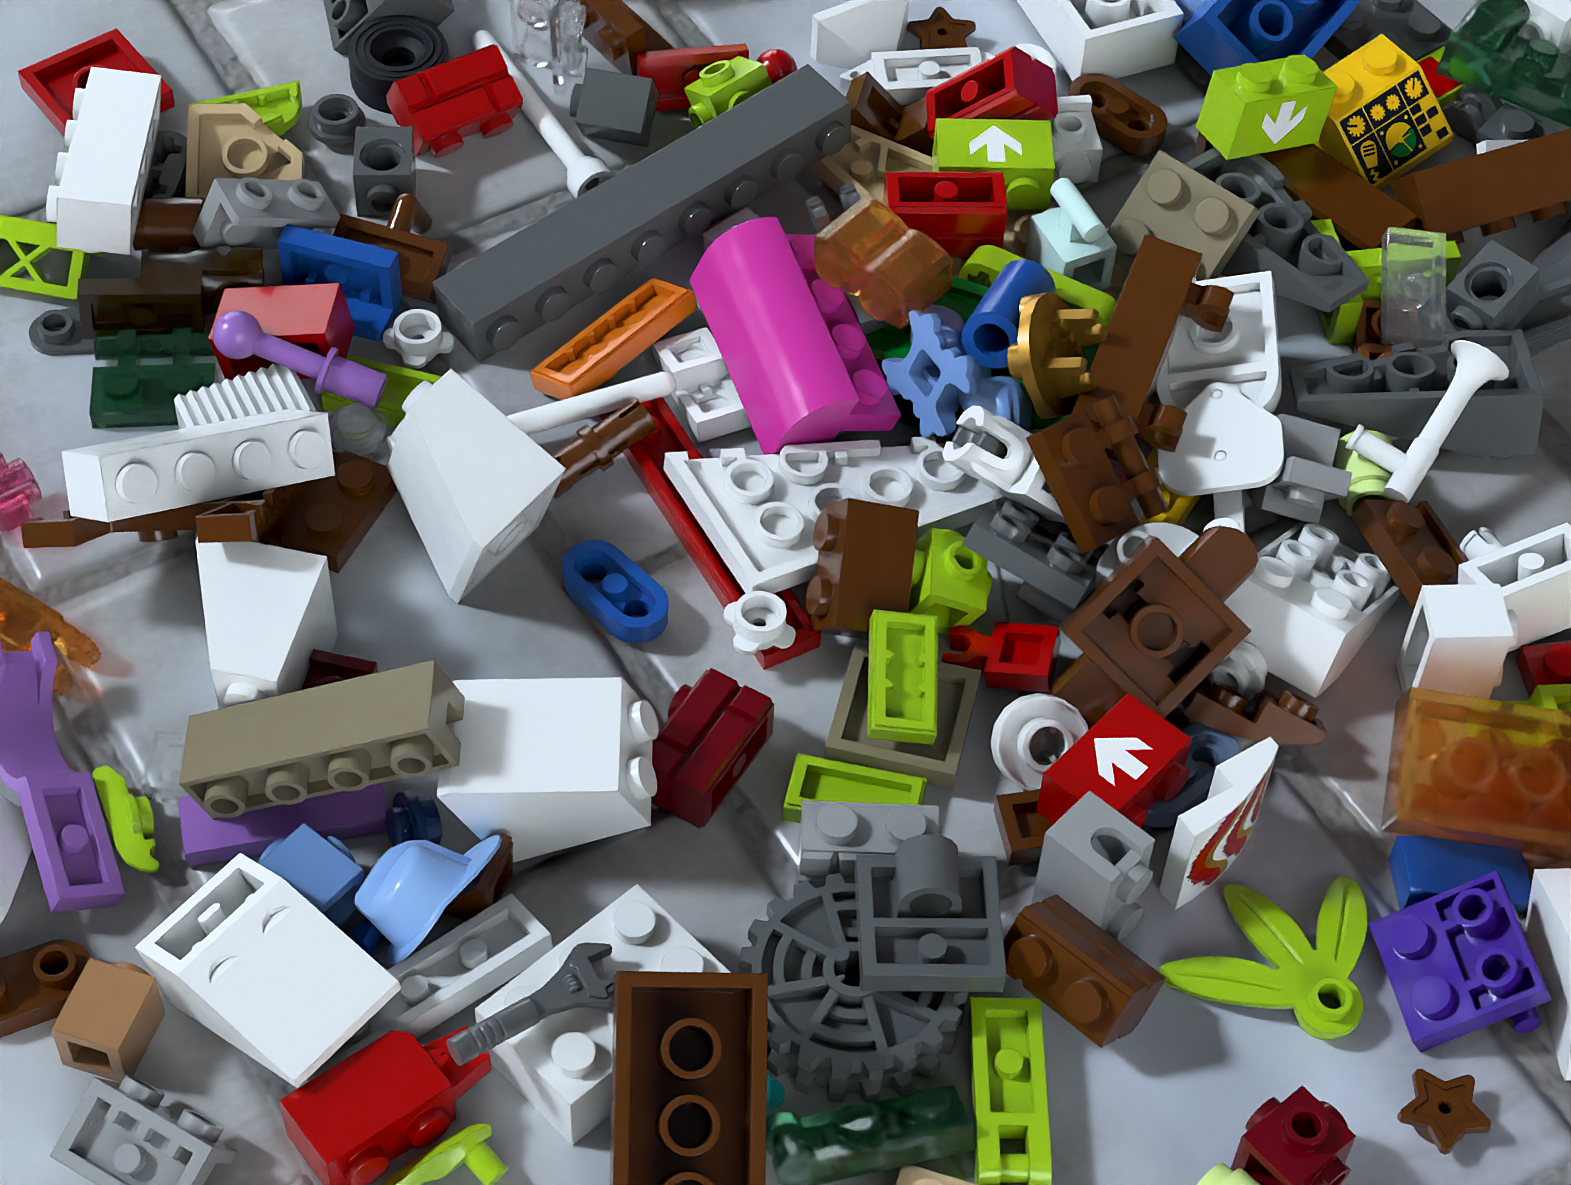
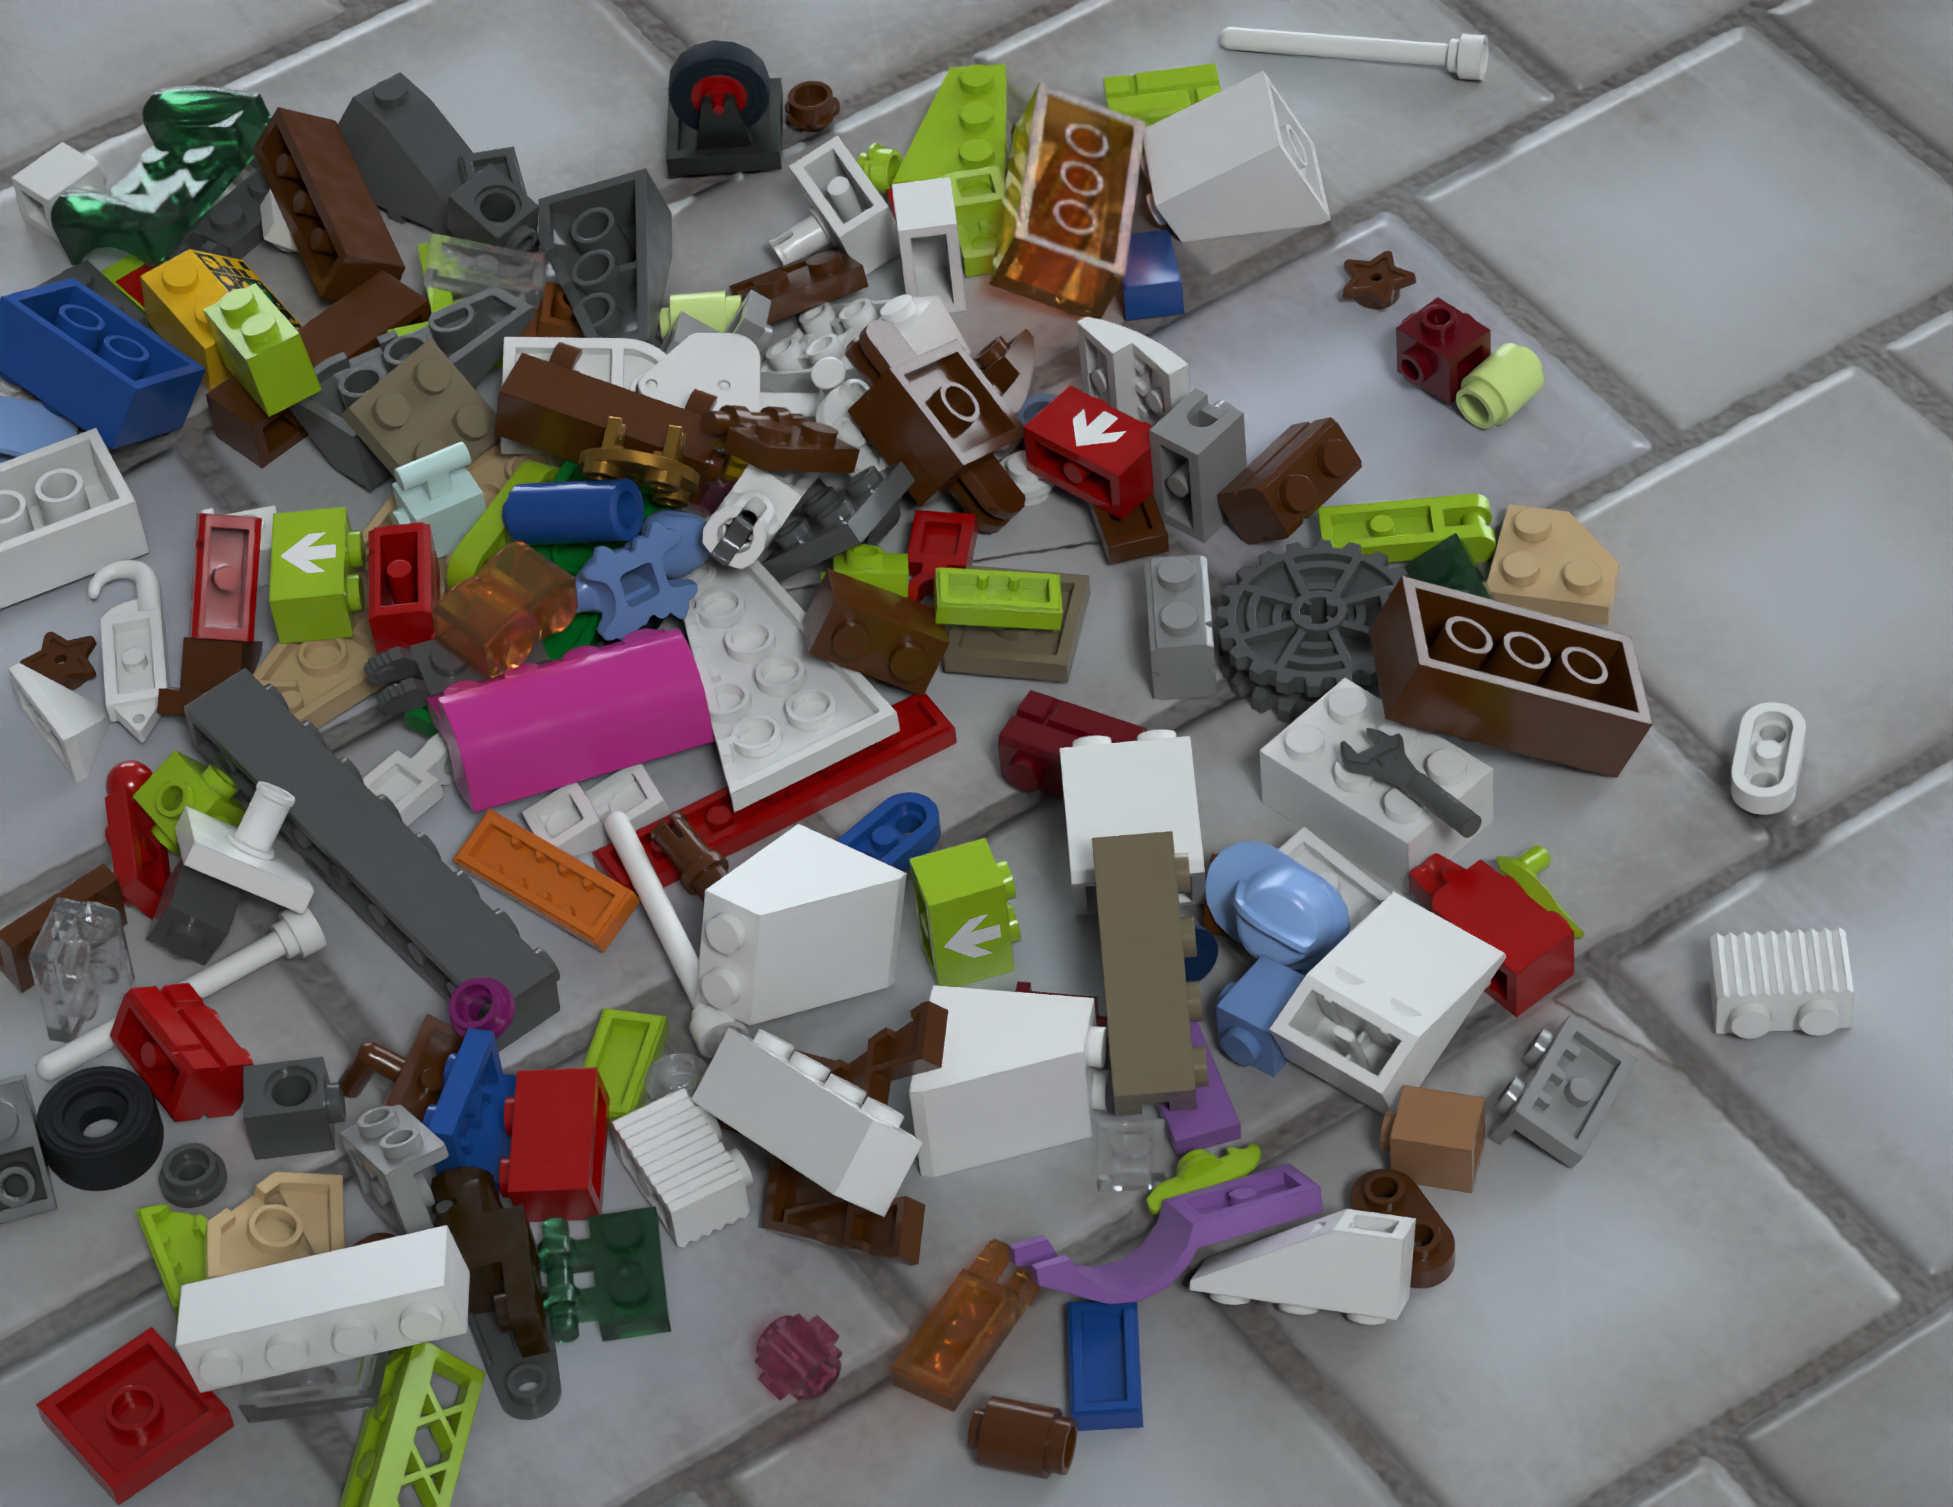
camera: 85 degrees left, 5 degrees down
(240, 336) = (629, 1082): medium lavender pin -> none
(418, 337) = (539, 1046): white plate -> none
(423, 264) = (475, 994): none -> magenta plate
(472, 616) = (965, 913): none -> lime brick
(635, 109) = (248, 853): none -> white tile
(759, 609) = (929, 718): white plate -> none
(839, 781) = (1108, 658): lime tile -> none
(929, 919) = (1277, 551): dark grey plate -> none
(1033, 736) = (1045, 521): white plate -> none
(1122, 114) = (174, 522): reddish brown plate -> none
(1300, 971) = (1273, 354): lime plant -> none
(1461, 963) = (1243, 258): dark purple plate -> none
(1474, 368) = (719, 268): white piece -> none

